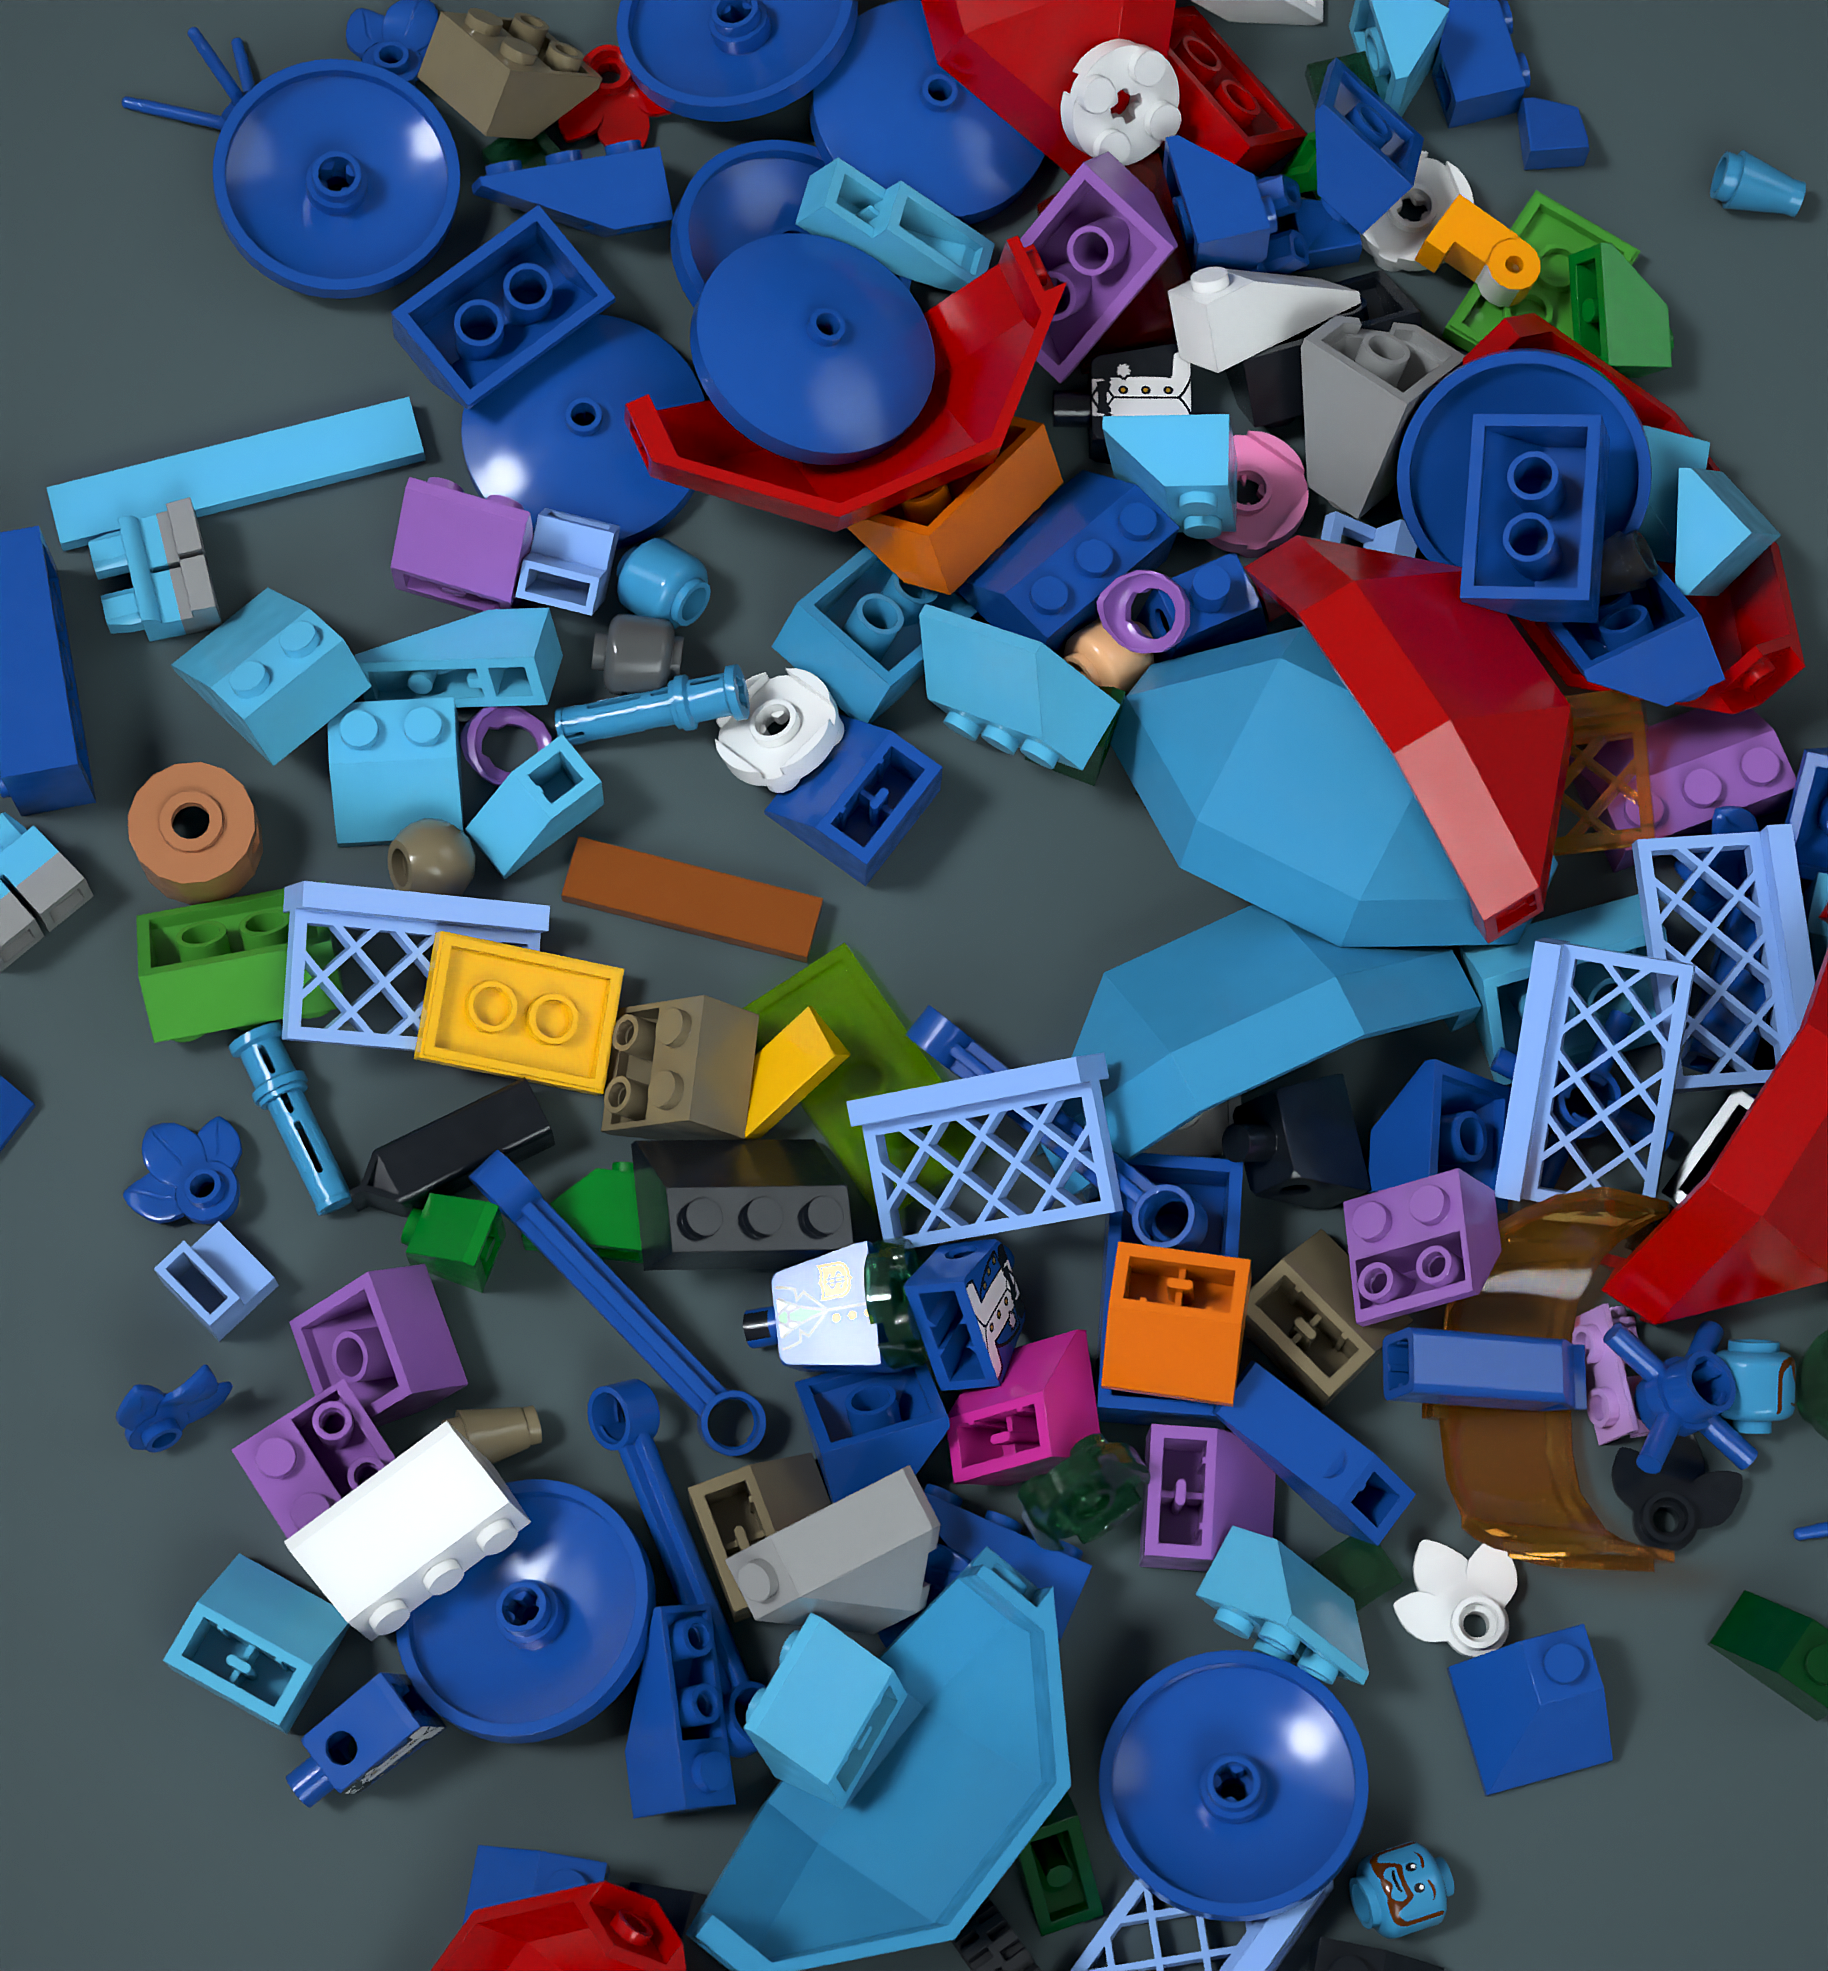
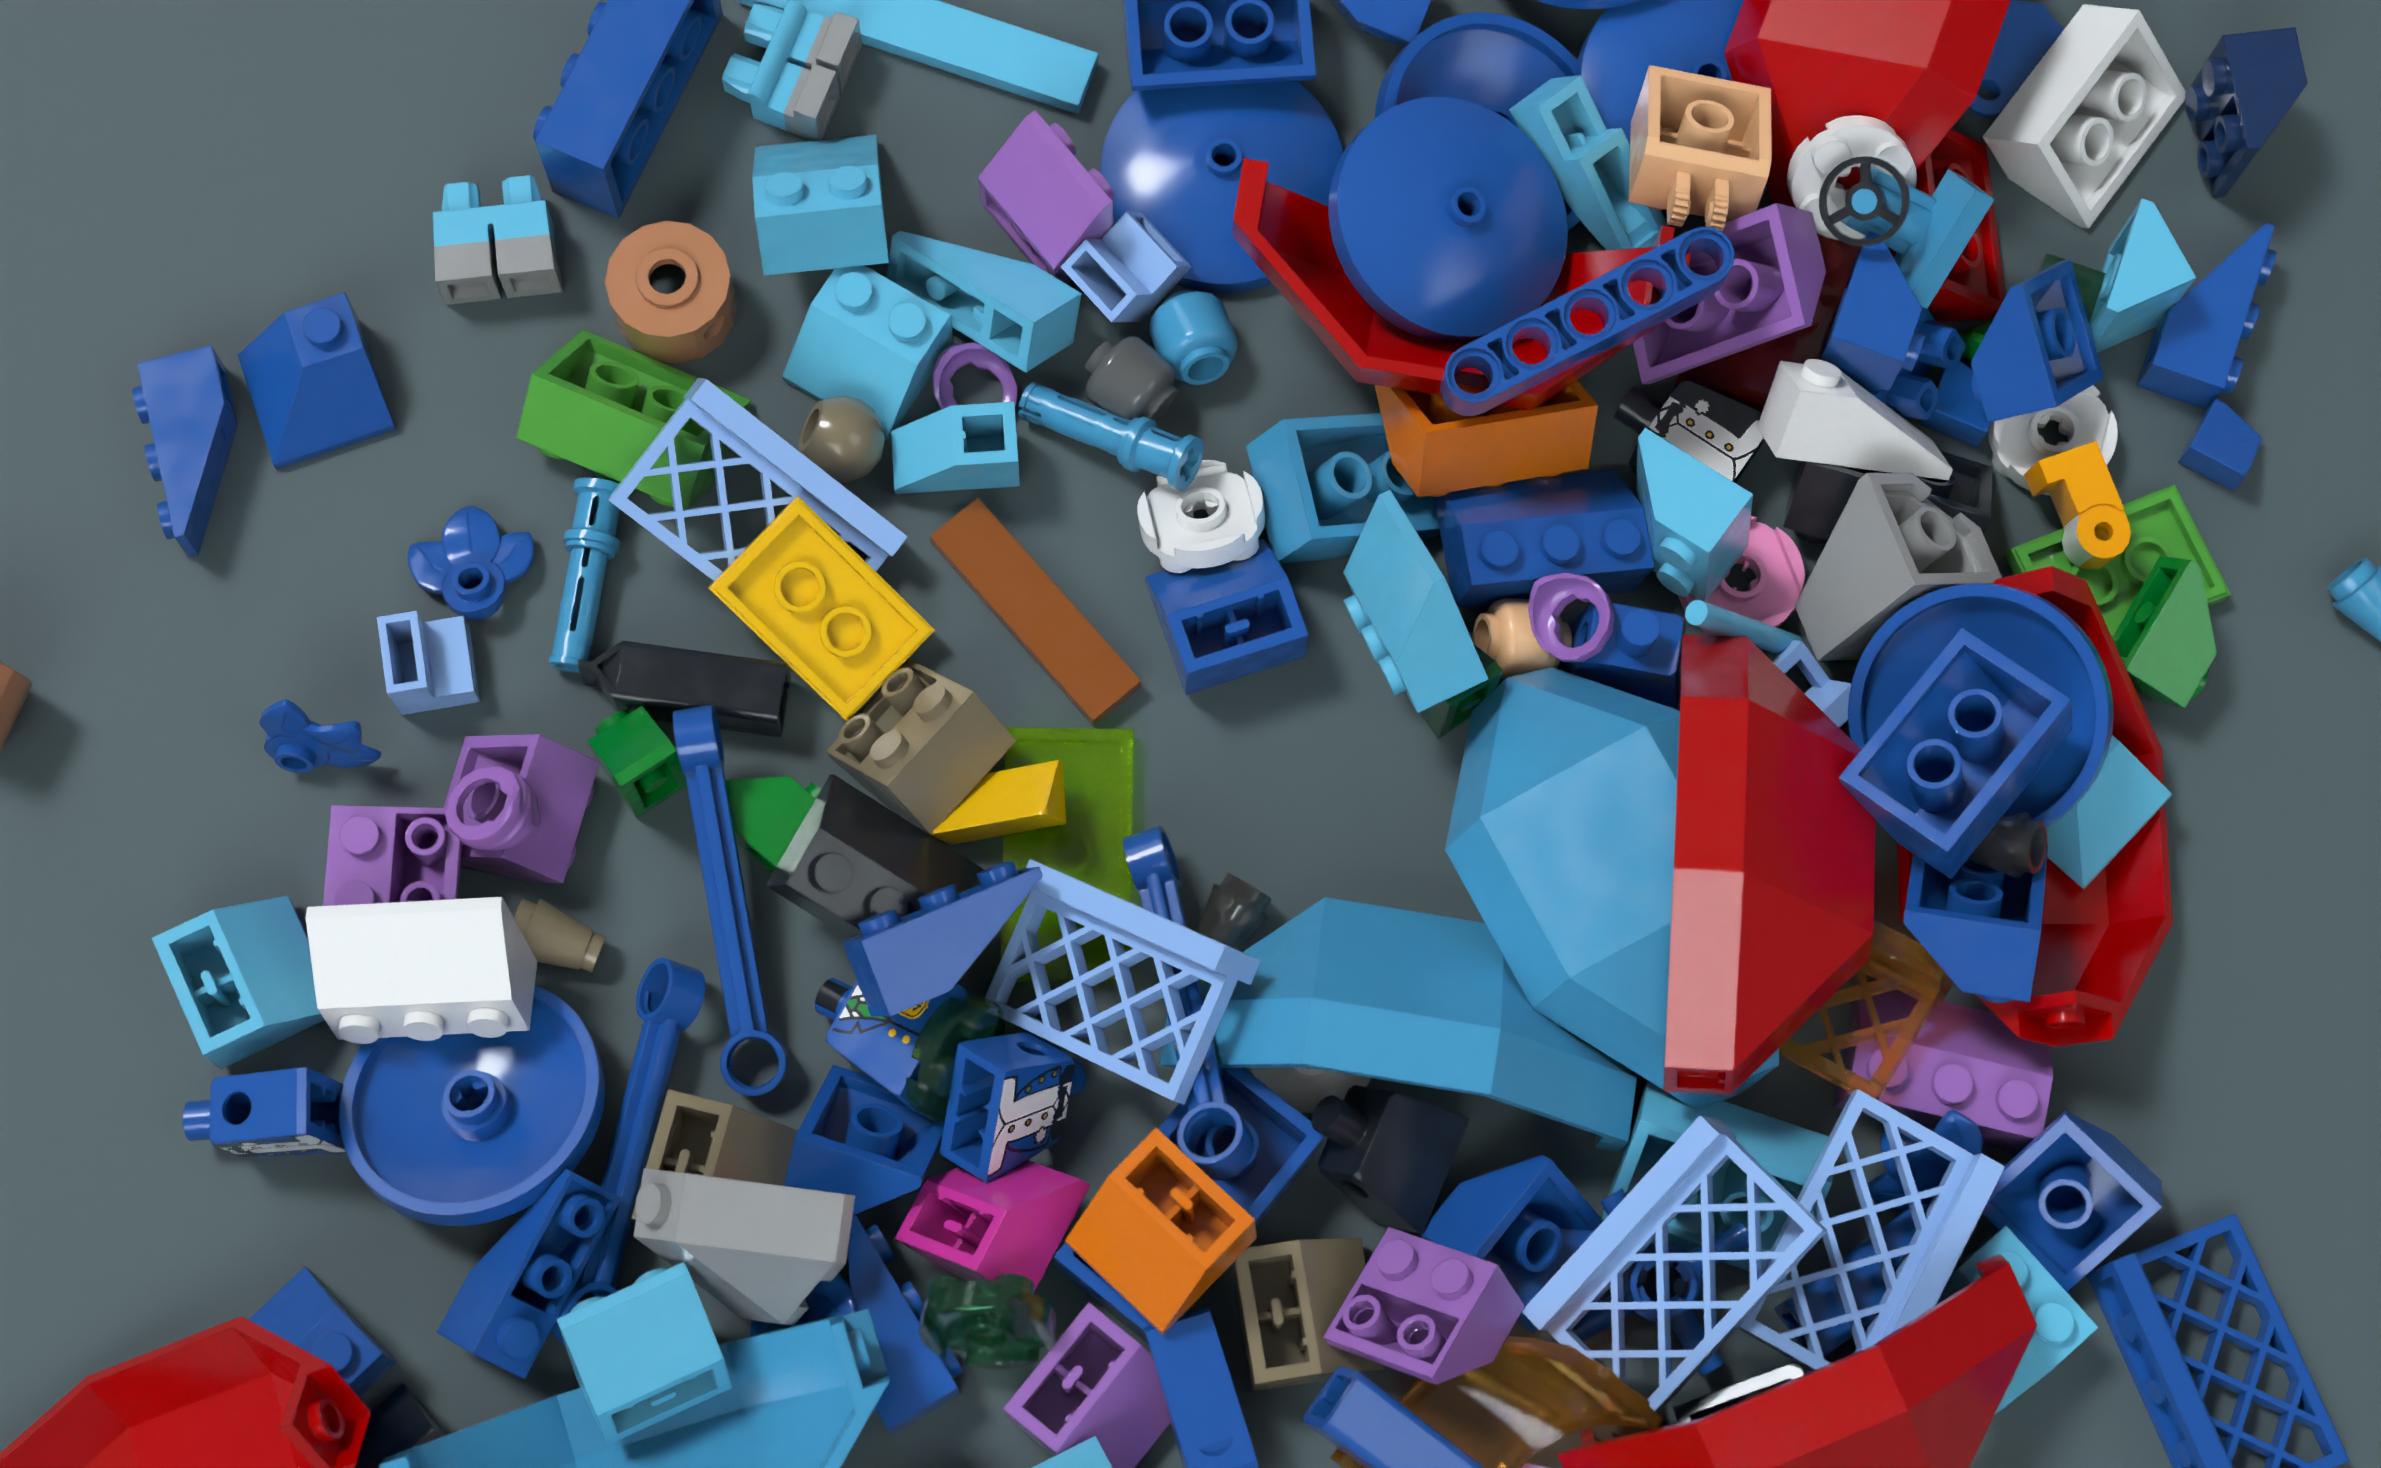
camera: 35 degrees right, 0 degrees up
(404, 1360) = (514, 824): none -> medium lavender piece
(828, 1223) = (932, 948): none -> slope
(981, 155) = (1699, 146): none -> light nougat hinge
(1013, 330) = (1606, 297): none -> blue beam
(1033, 1033) = (1233, 912): none -> clear smoke cone
(1206, 108) = (1920, 227): none -> dark azure piece
(1278, 532) = (1733, 624): none -> medium azure bar
(1716, 532) = (2118, 873): medium azure slope -> none

